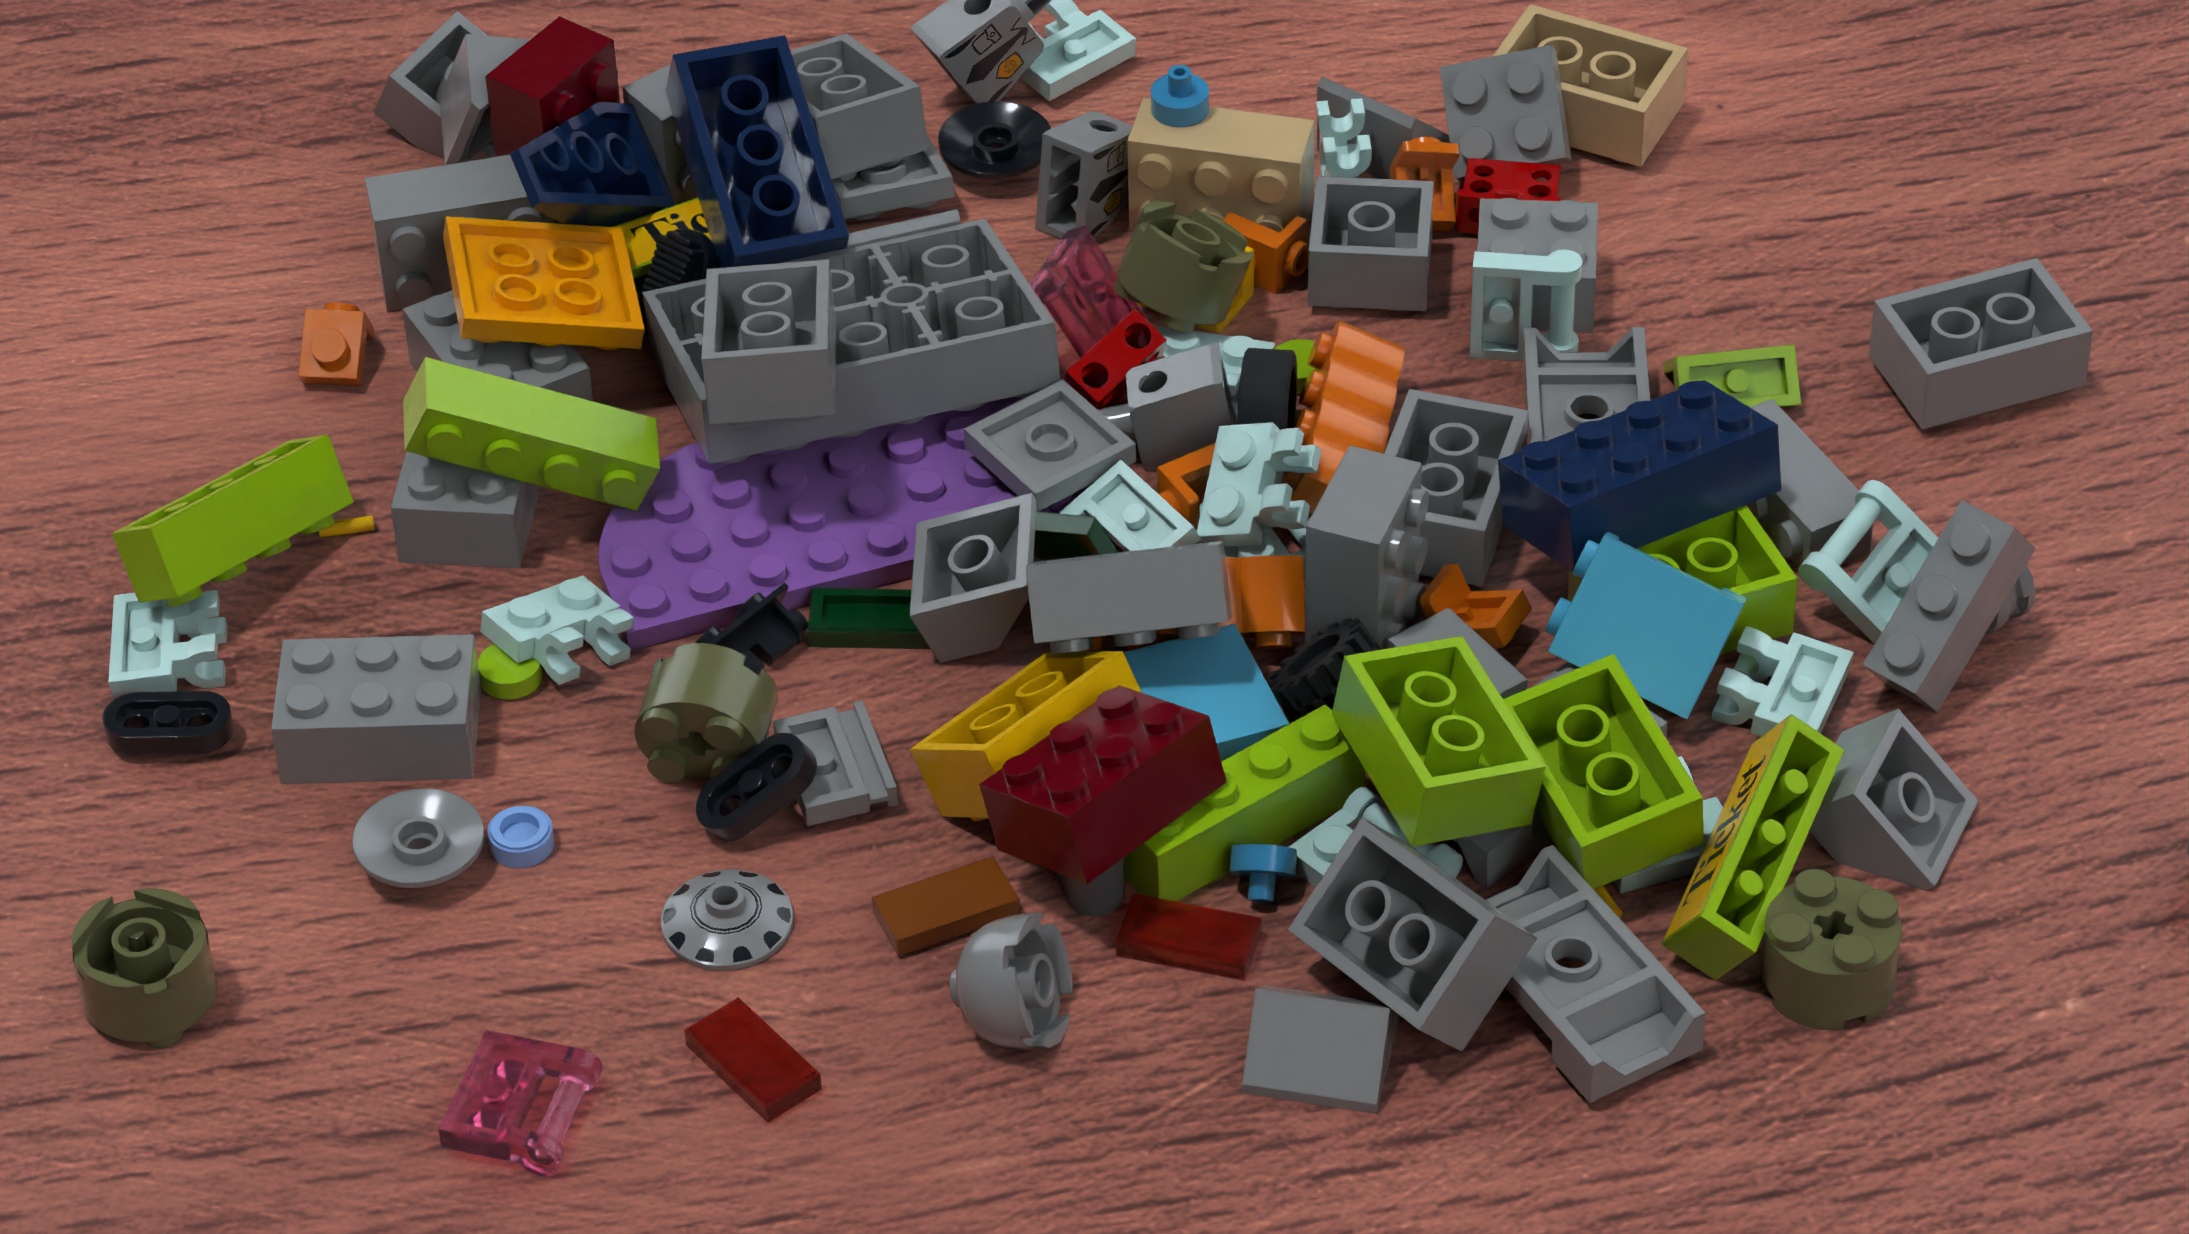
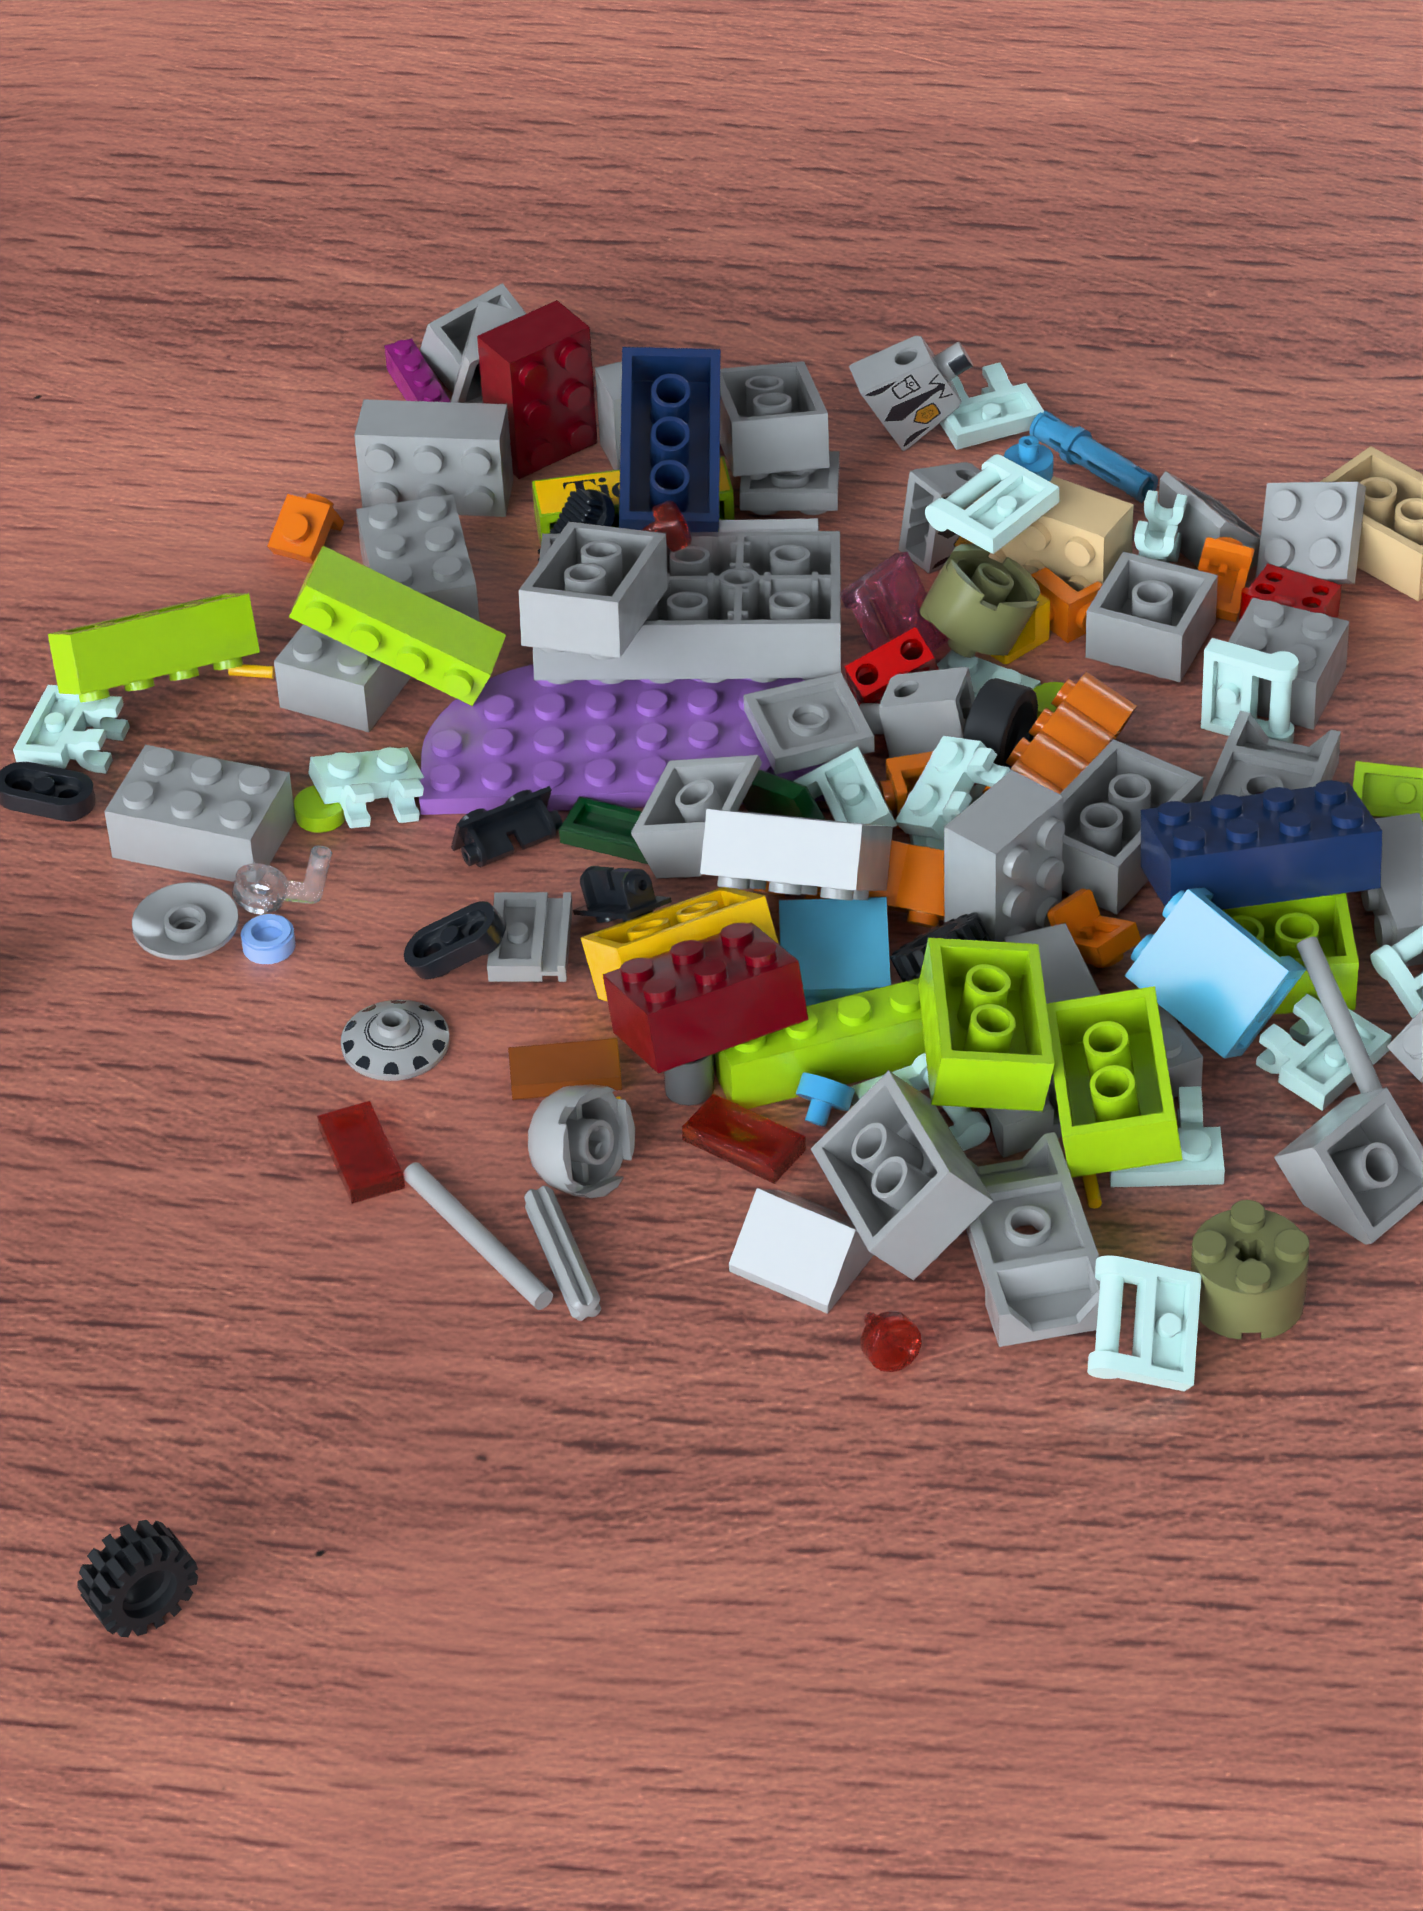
camera: 20 degrees right, 0 degrees up
(378, 140) = (412, 373): none -> magenta piece
(493, 778) = (265, 888): none -> clear plate
(500, 1091) = (156, 1129): clear pink plate -> none
(542, 283) = (463, 510): light orange plate -> none
(594, 169) = (539, 428): dark blue wedge -> none
(702, 712) = (437, 871): olive brick -> none
(798, 246) = (670, 521): none -> clear red tile
(923, 690) = (617, 894): none -> black hinge
(938, 1123) = (478, 1236): none -> light grey bar
(993, 139) = (883, 468): black dish -> none
(1048, 1119) = (562, 1253): none -> light grey axle
(1178, 158) = (1001, 513): none -> light aqua plate
(1222, 79) = (1079, 448): none -> dark azure pin
(1472, 1125) = (890, 1340): none -> clear red tile
(1753, 847) = (1219, 1170): lime brick -> none
(1769, 1031) = (1162, 1324): none -> light aqua plate
(1801, 644) = (1338, 1015): none -> light grey bar

